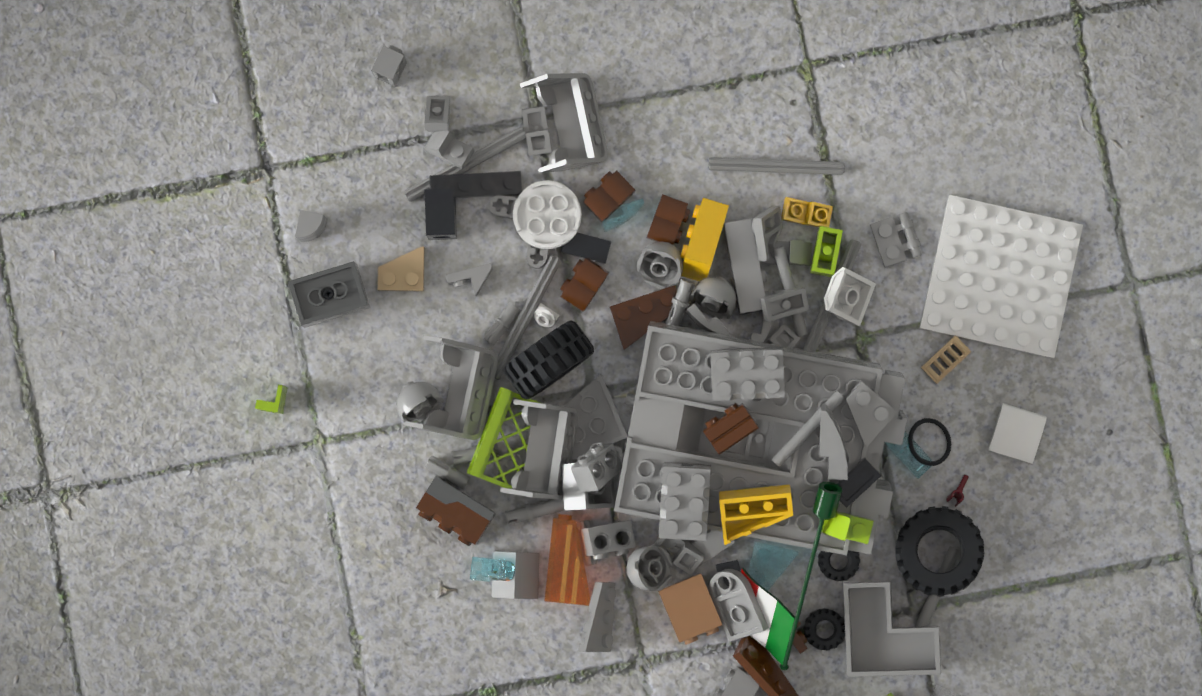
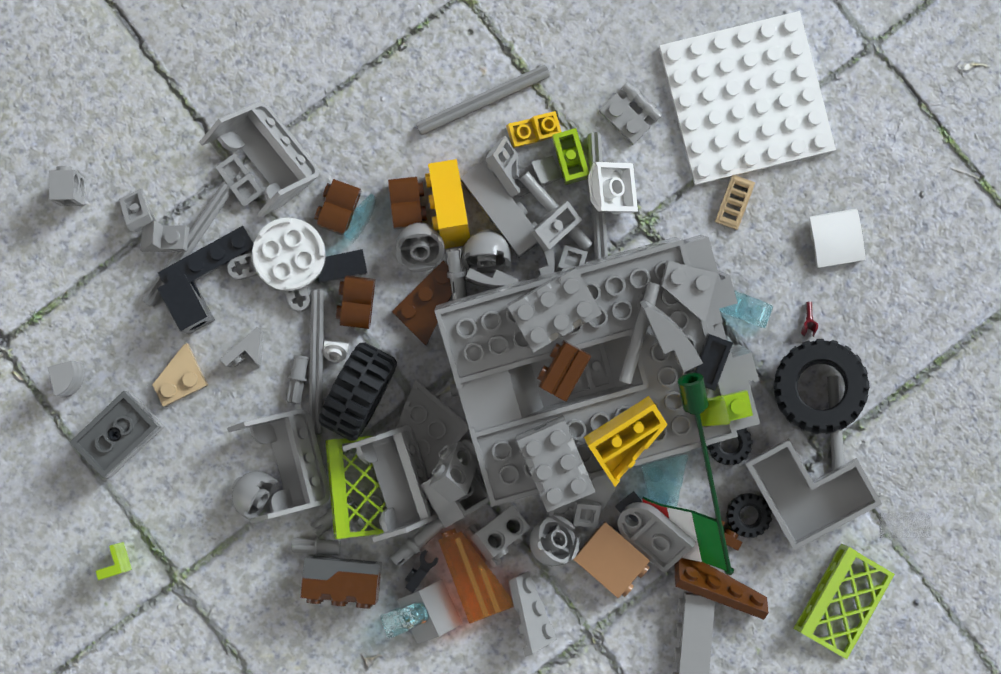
camera: 20 degrees left, 0 degrees up
(518, 540) = (416, 576): none -> black plate
(911, 447) = (744, 301): black tyre -> none

